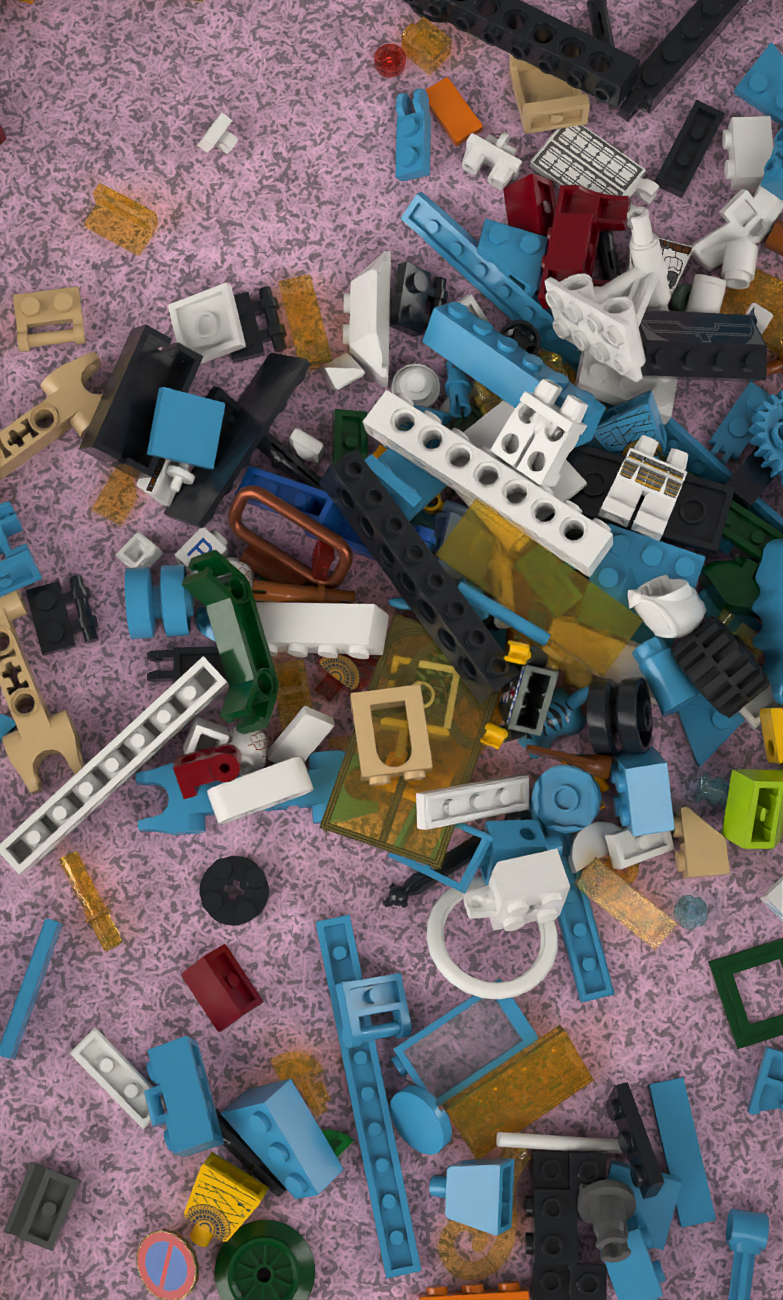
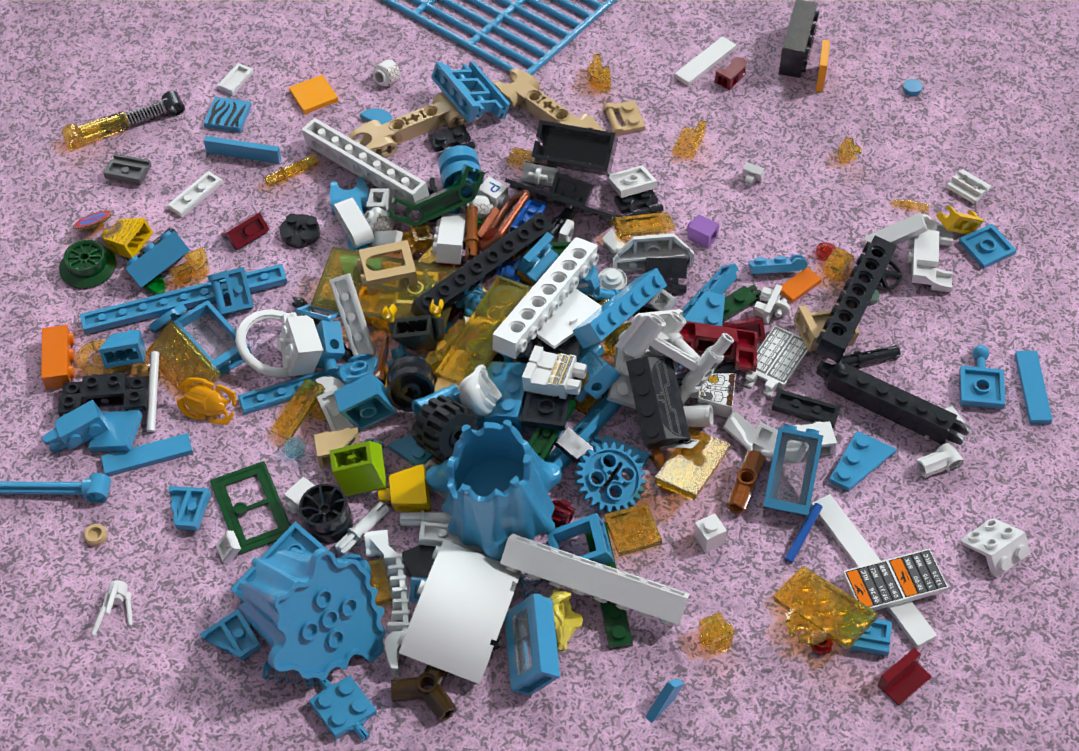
camera: 90 degrees right, 25 degrees down
(139, 552) = (491, 168): white tile -> none
(186, 428) = (562, 167): dark azure tile -> none
(187, 1095) = (182, 214): dark azure piece -> none
(206, 766) = (363, 194): dark red leg -> none
(330, 233) = (702, 231): none -> medium lavender brick
(470, 202) = (739, 301): none -> dark green hinge
(504, 614) = (464, 310): dark azure bar -> none
(541, 433) = (575, 307): white hips -> none
(597, 1054) = (205, 401): none -> light orange shield
(608, 1207) = (111, 403): dark grey piece -> none
(634, 1141) = (151, 417): black plate -> none
(739, 263) = (727, 433): white brick -> none

